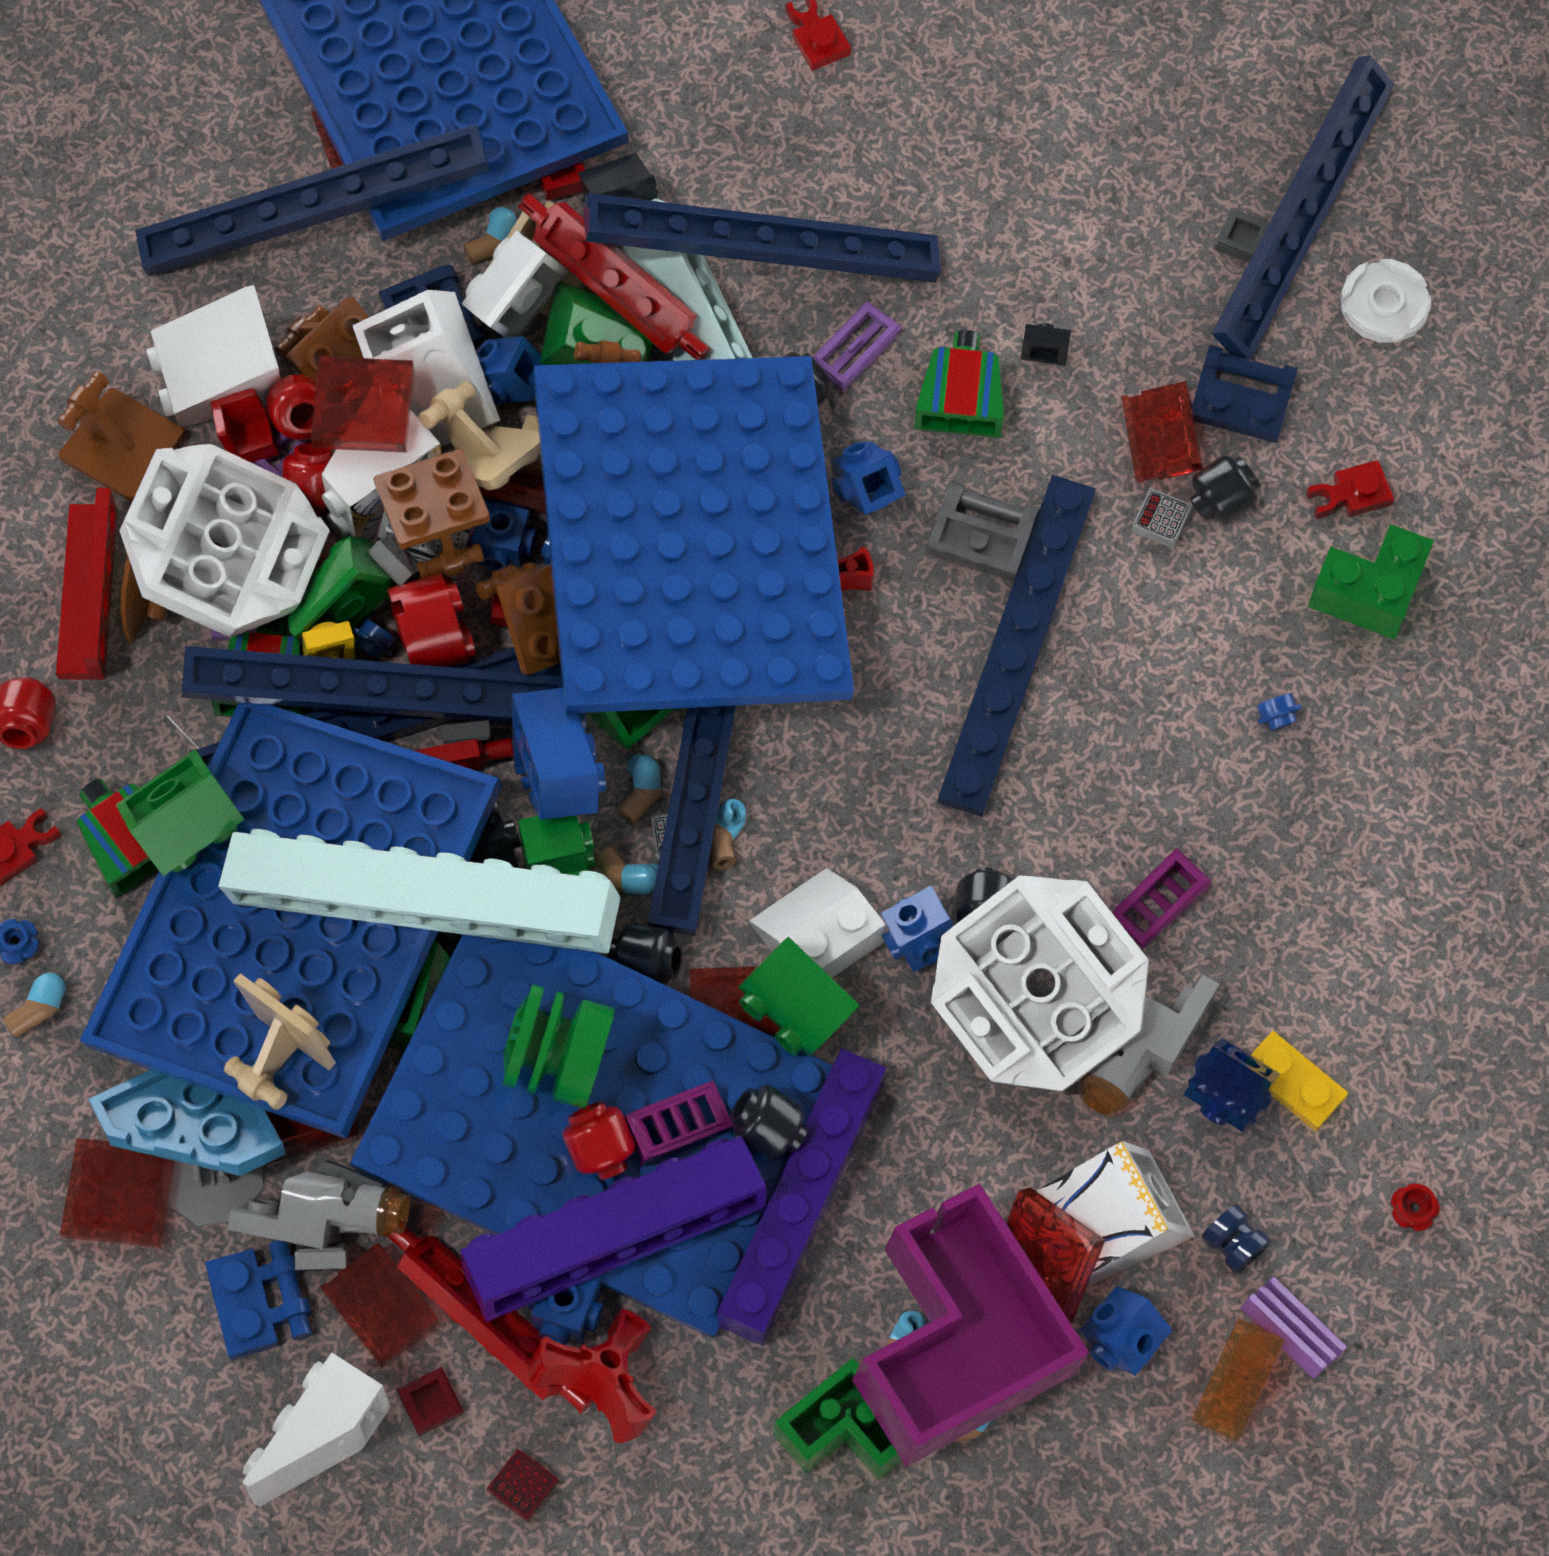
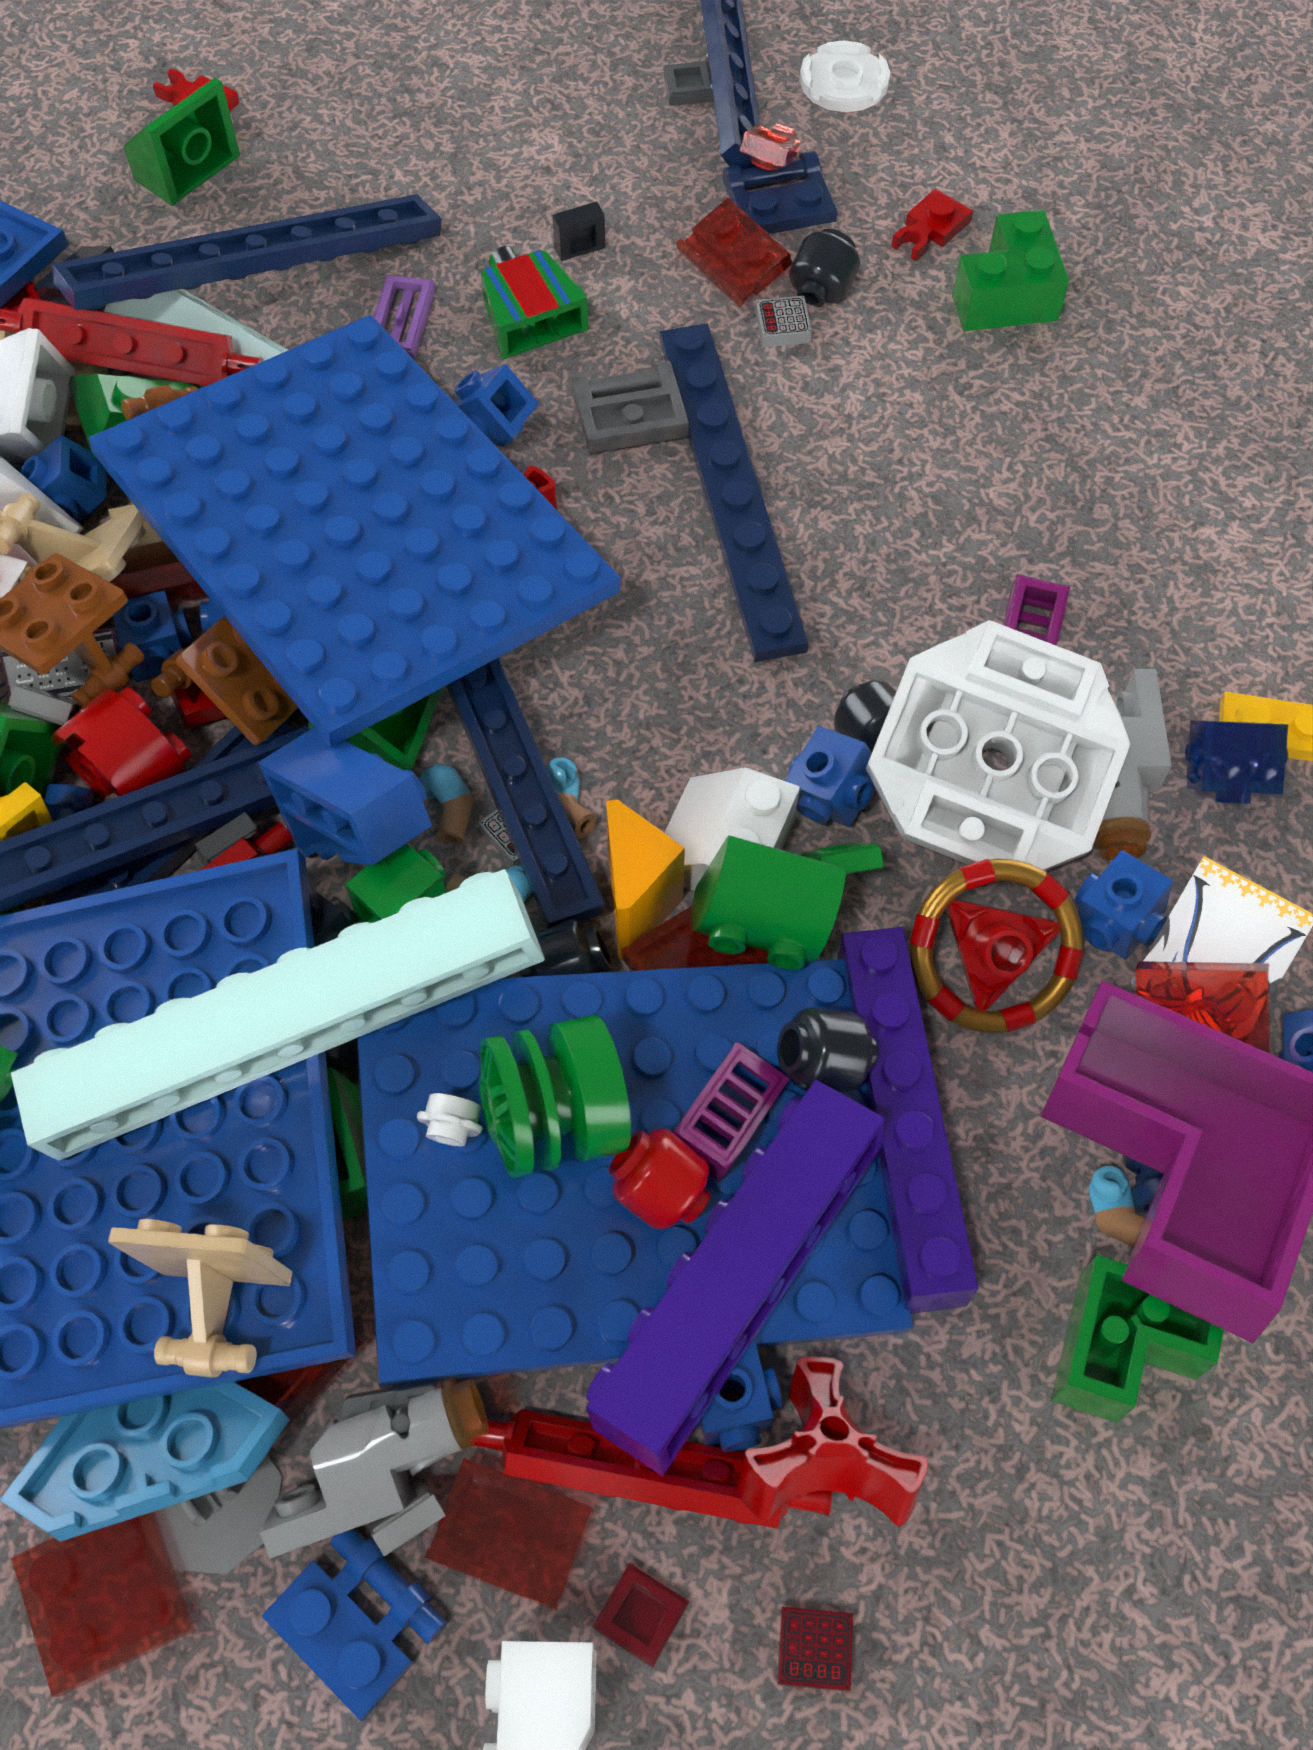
camera: 30 degrees left, 5 degrees down
(487, 1023) = (450, 1119): none -> white plate
(729, 926) = (643, 873): none -> light orange slope
(772, 89) = (184, 145): none -> green slope
(880, 993) = (852, 856): none -> green tile
(948, 1119) = (996, 945): none -> red piece
(1059, 1141) = (1123, 905): none -> blue brick
(1256, 351) = (770, 147): none -> clear red plate
(1278, 711) = (1010, 420): blue plate -> none

